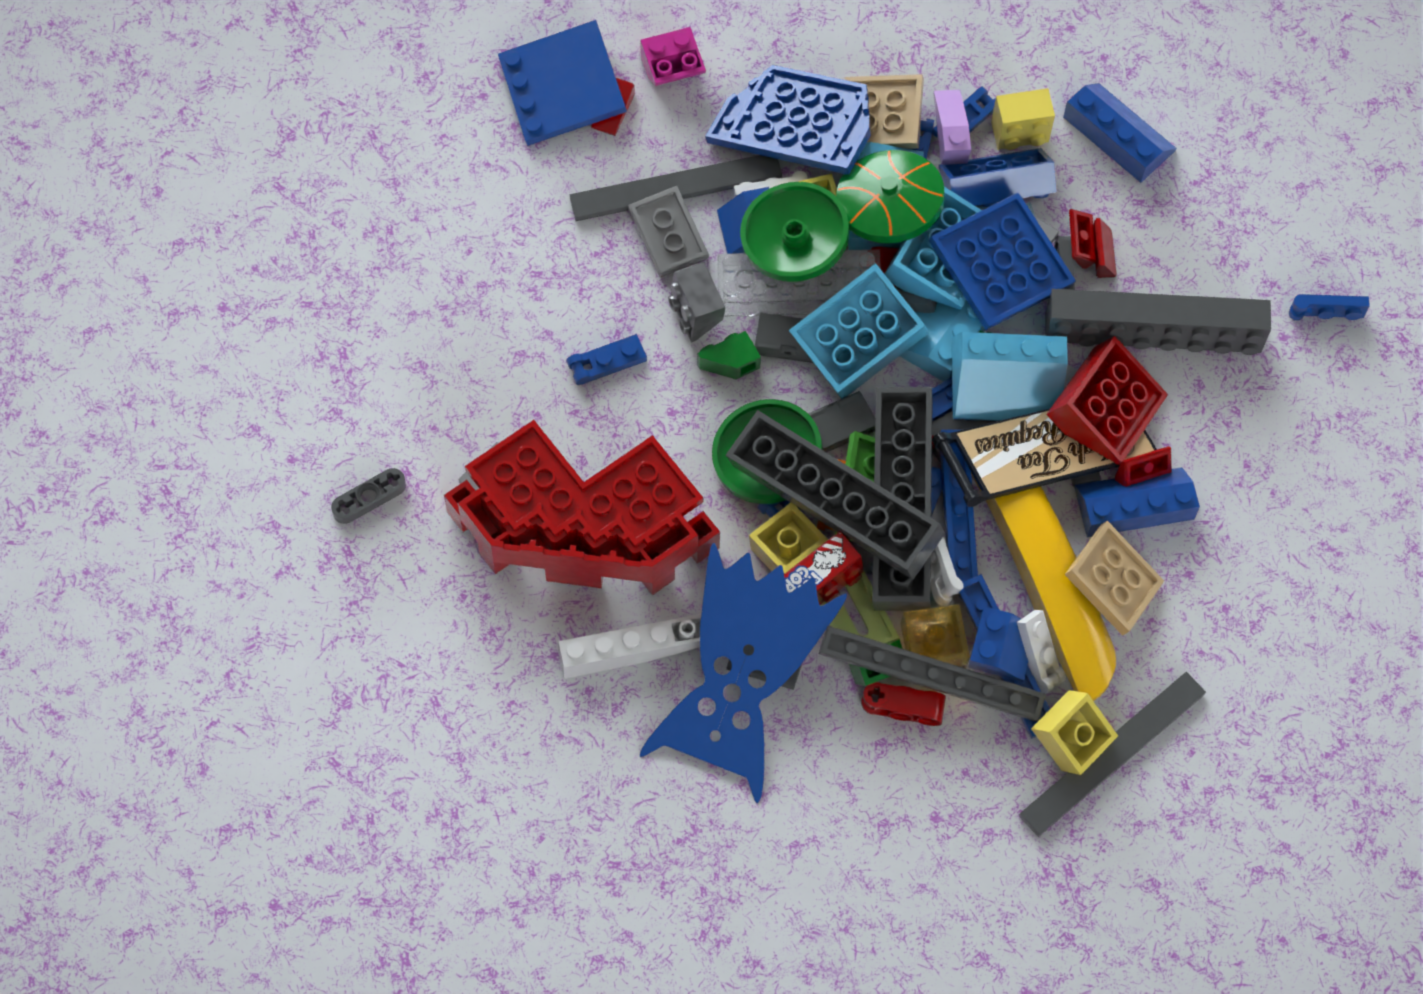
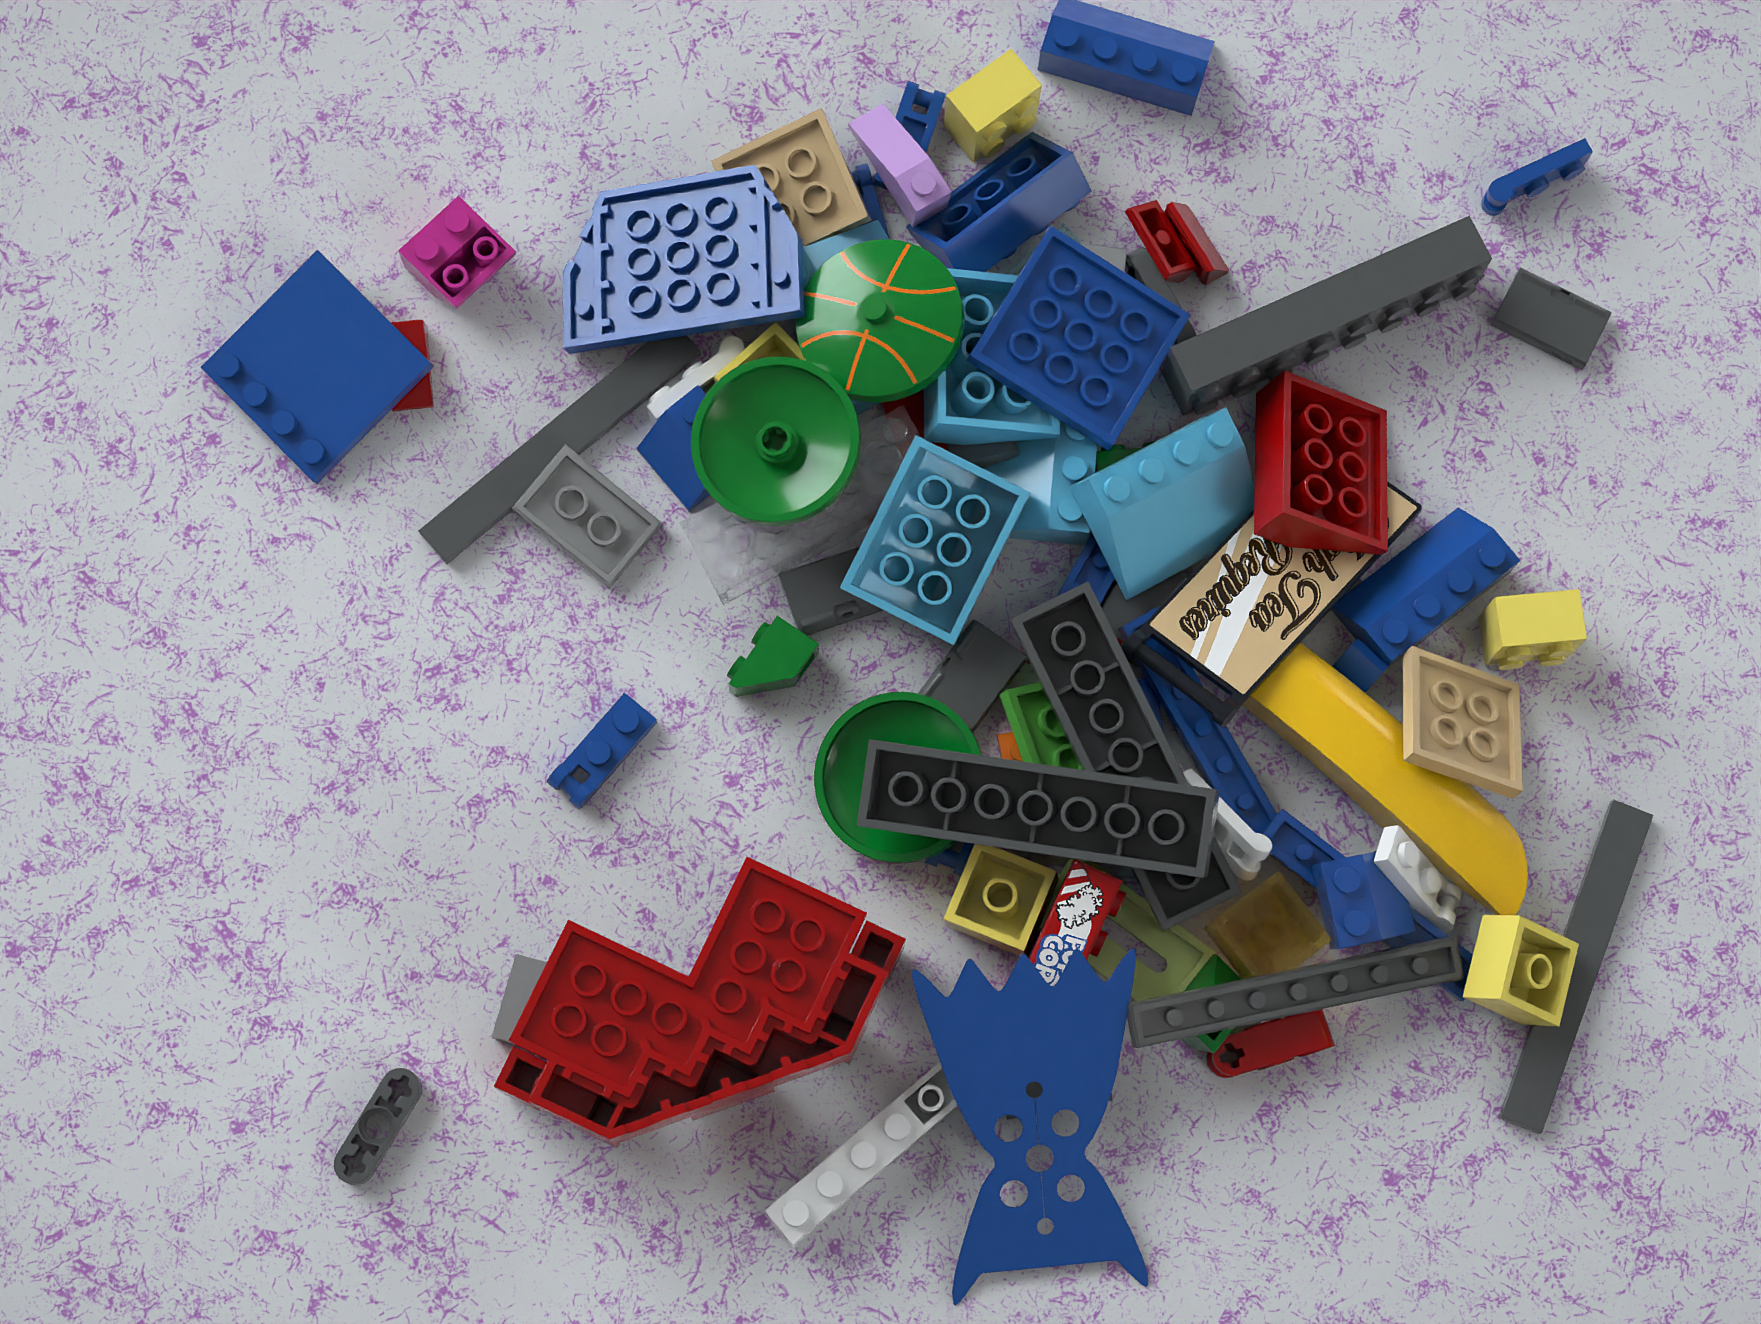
camera: 30 degrees left, 10 degrees up
(696, 301) = (686, 607): flat silver slope -> none
(1073, 523) = (1360, 665): none -> blue tile
(1144, 467) = (1416, 539): red slope -> none
(1187, 548) = (1532, 628): none -> light yellow brick
(1296, 390) = (1551, 318): none -> dark grey piece

